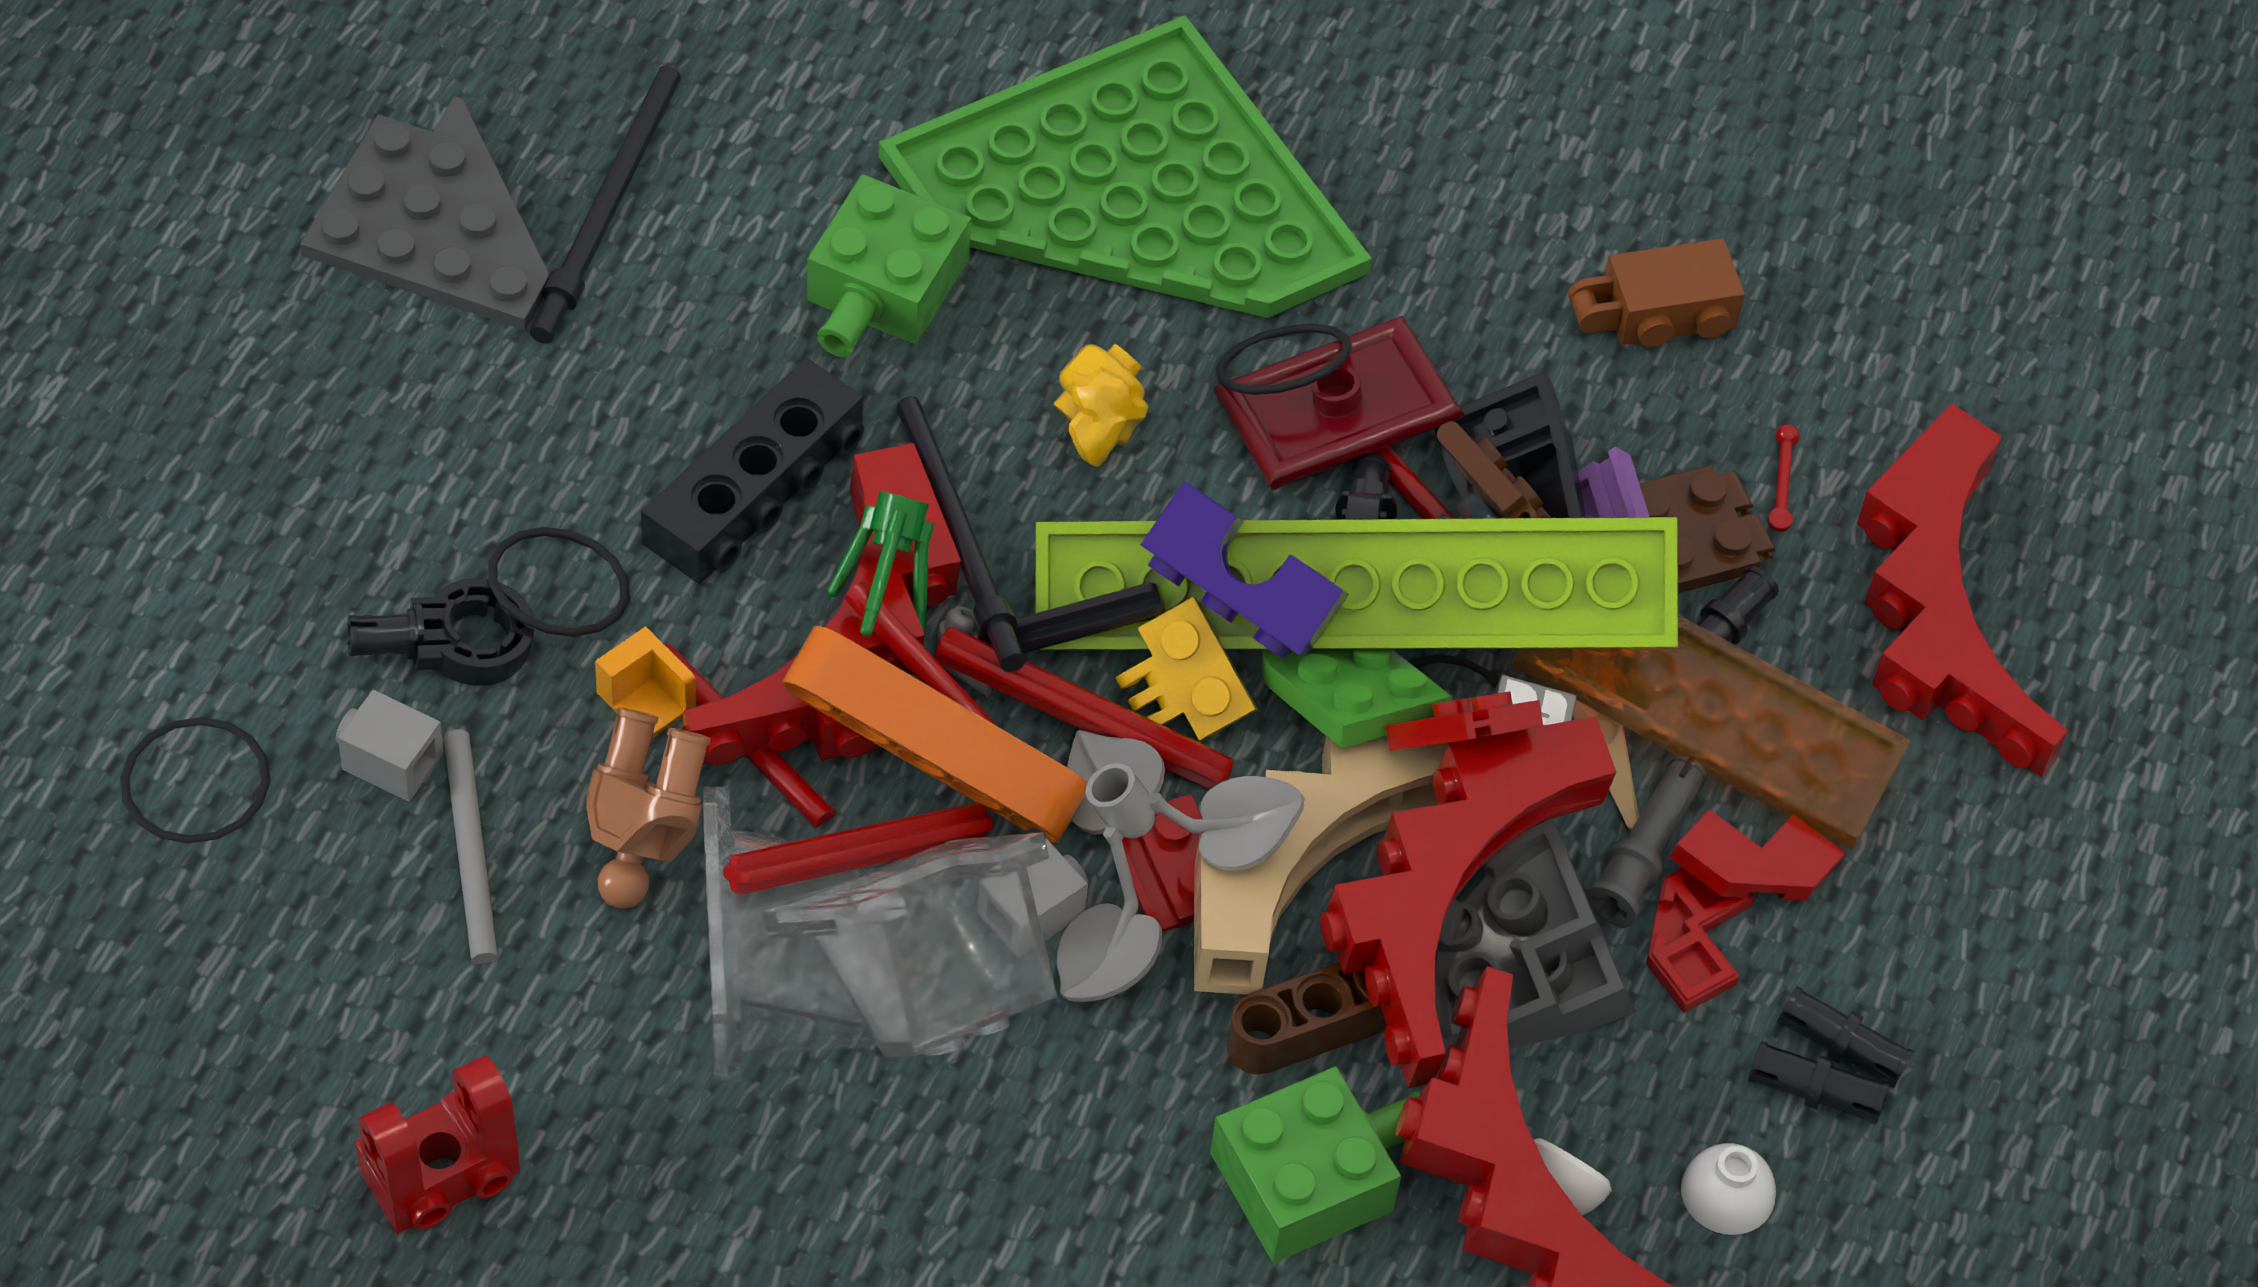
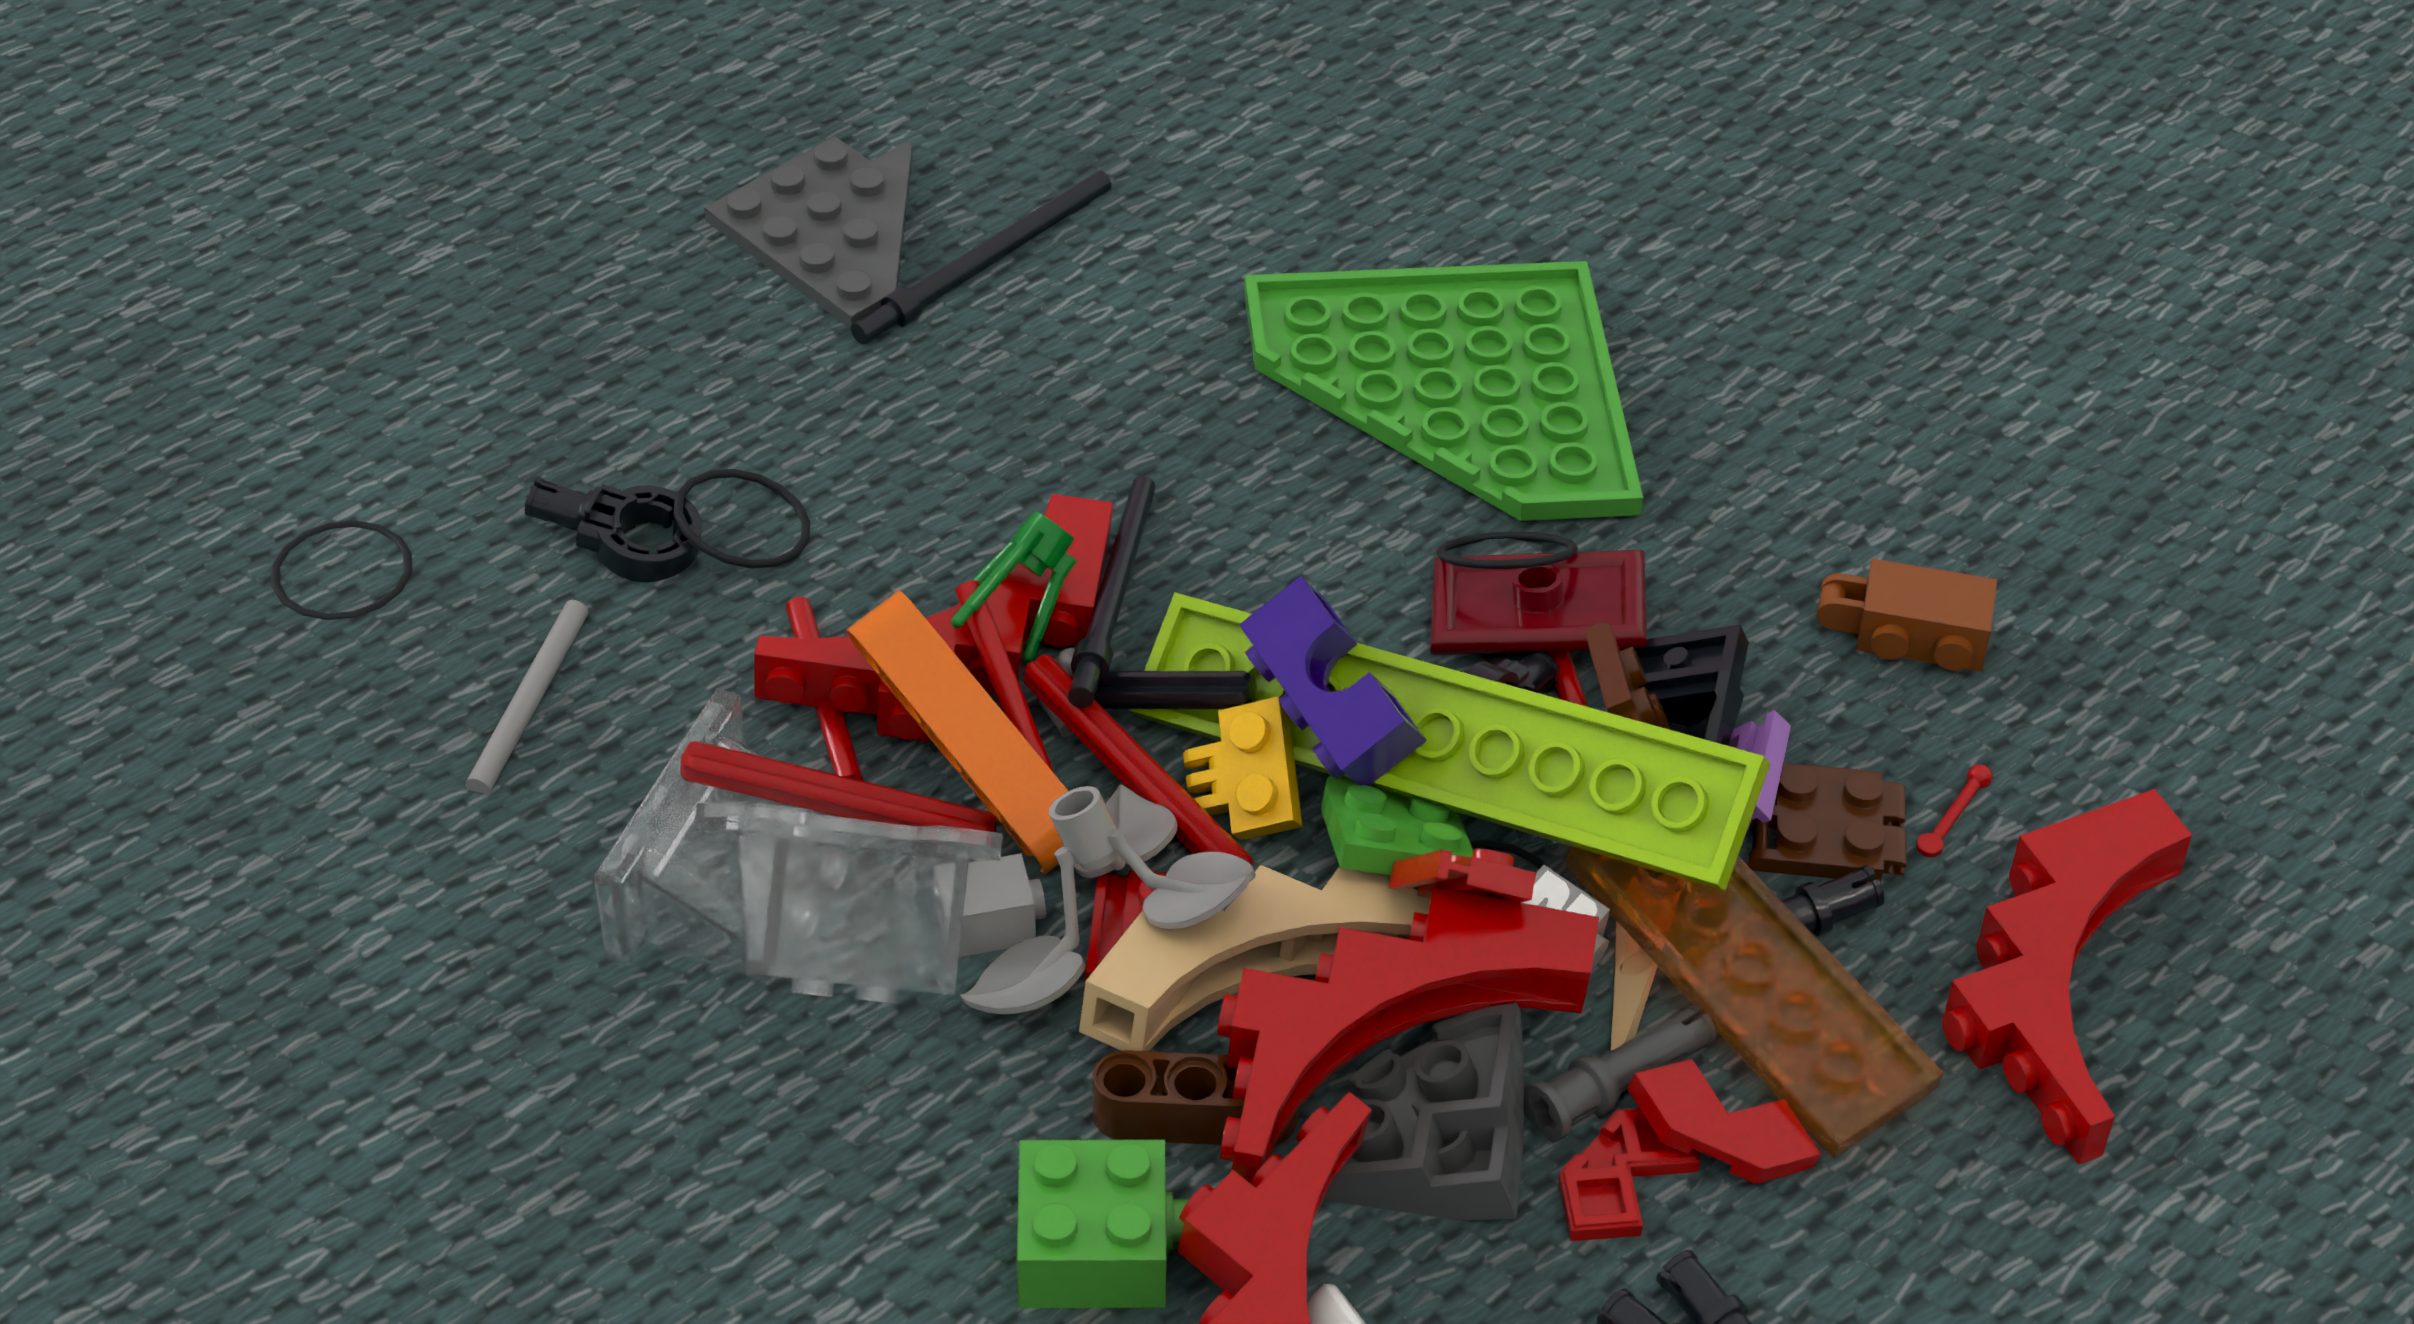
camera: 30 degrees right, 10 degrees down
(389, 744) = (509, 591): light grey brick -> none
(467, 1126) = (311, 920): red brick -> none
(637, 814) = (672, 706): nougat connector -> none
(646, 678) = (753, 607): light orange panel -> none
(762, 442) = (963, 486): black brick -> none
(885, 264) = (1187, 366): bright green brick -> none
(1101, 400) = (1312, 531): yellow head -> none

